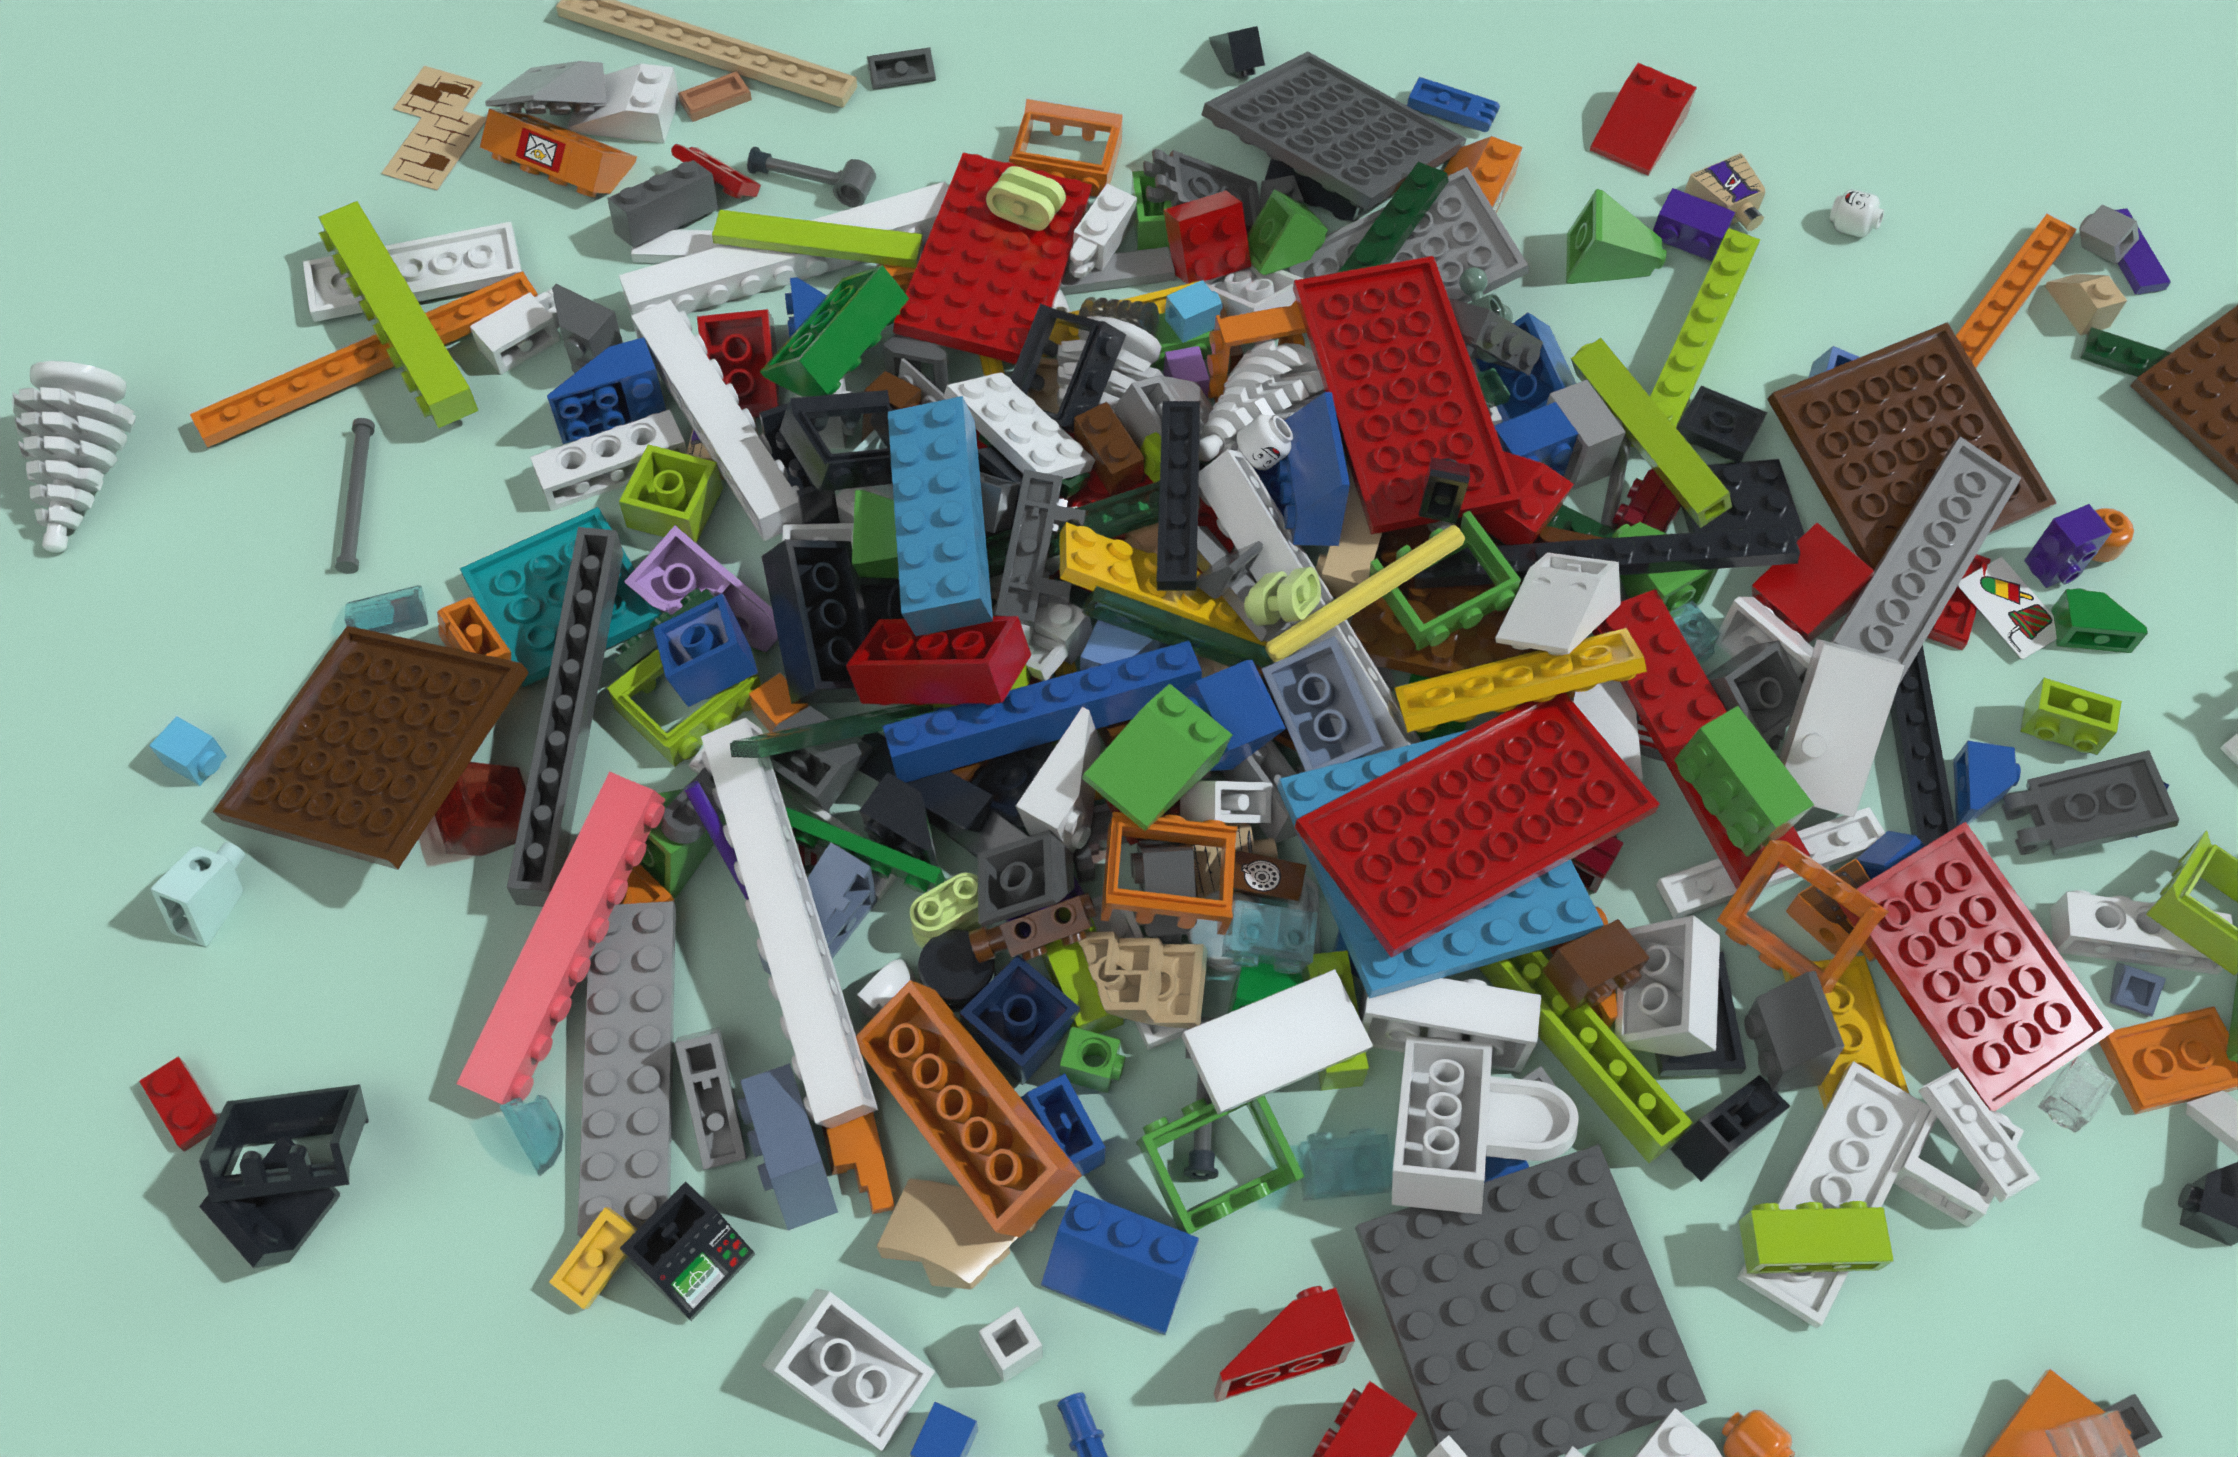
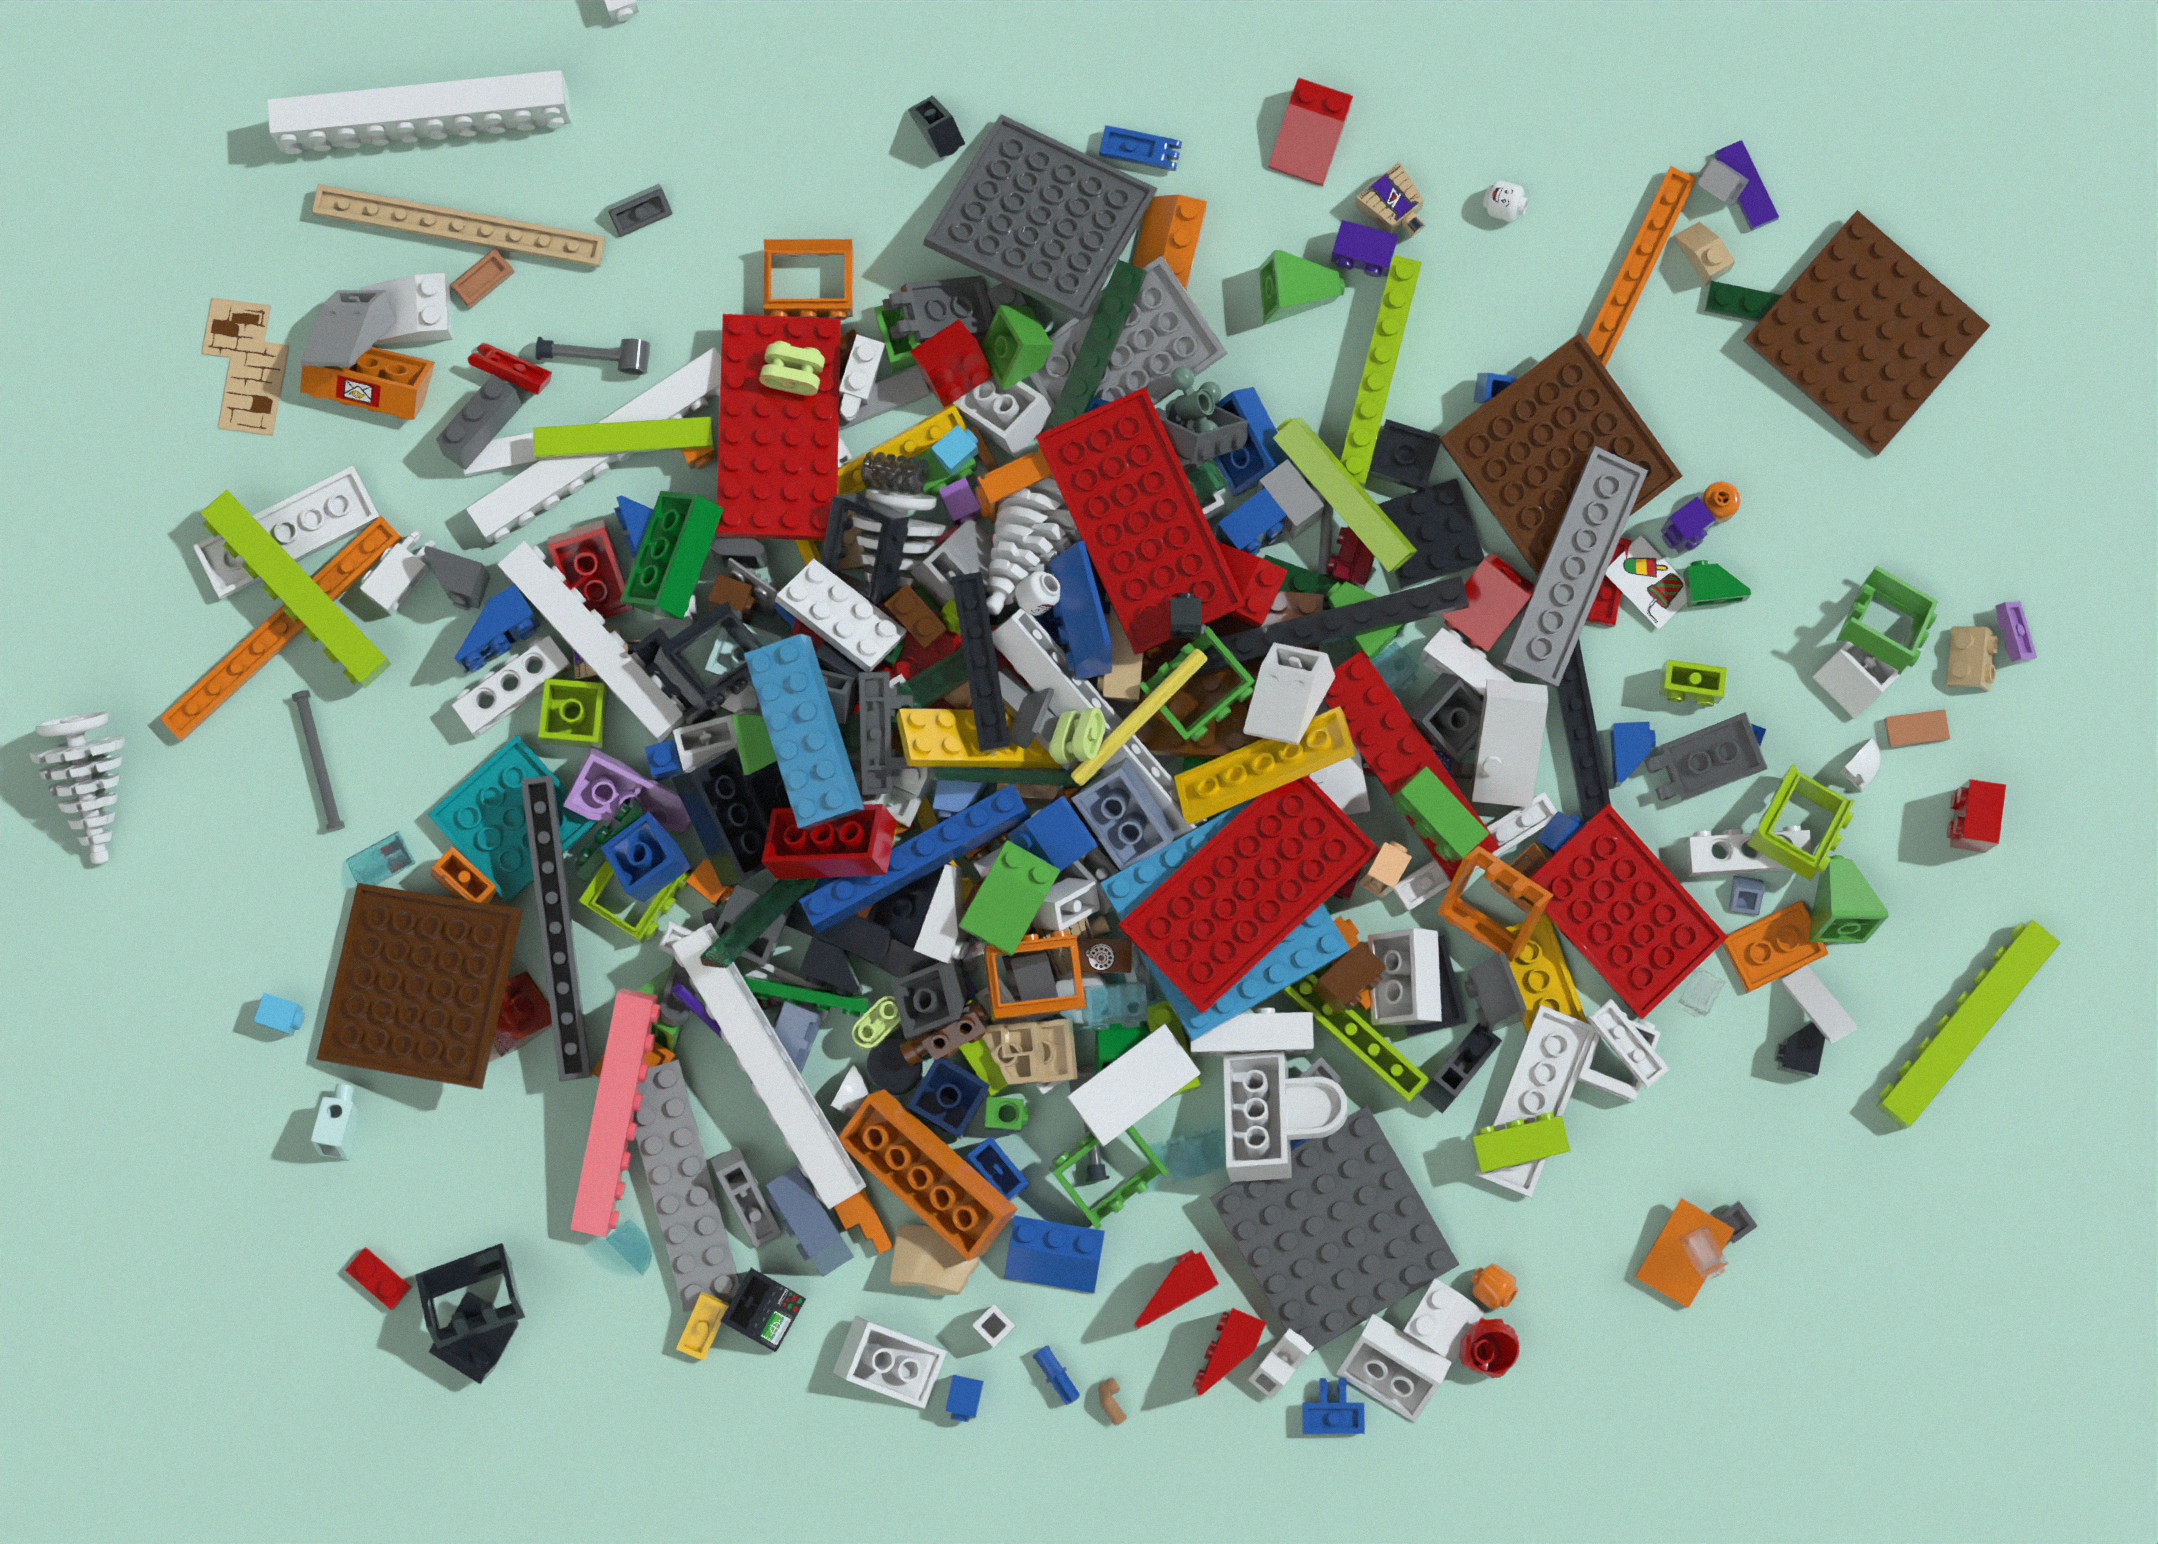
camera: 10 degrees left, 20 degrees up
(752, 562) = (664, 760): none -> blue brick
(1656, 844) = (1385, 869): none -> light nougat brick

